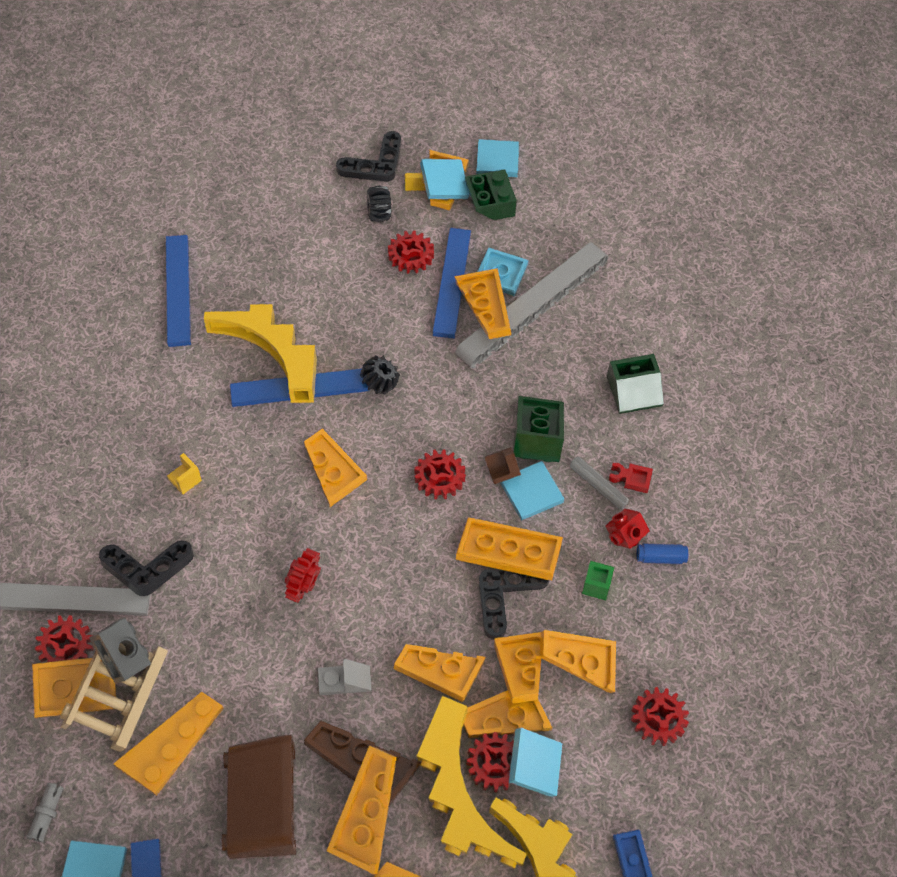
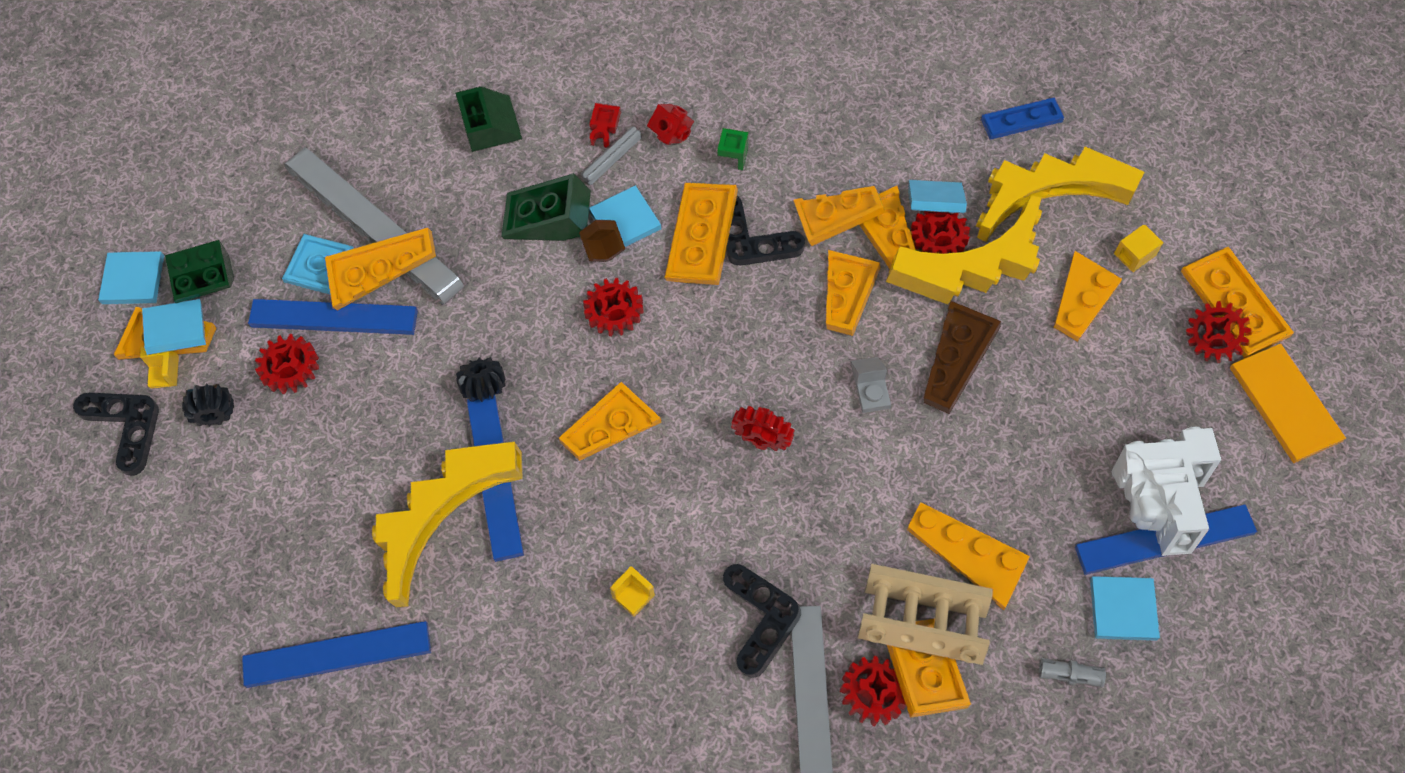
camera: 90 degrees left, 5 degrees up
(107, 646) = (894, 599): dark grey brick -> none
(260, 798) = (1016, 438): reddish brown windscreen -> none
(364, 816) = (1022, 341): light orange wing -> none
(582, 656) = (819, 161): light orange wing -> none
(662, 553) = (693, 96): blue piece -> none
(668, 708) = (870, 97): red gear -> none

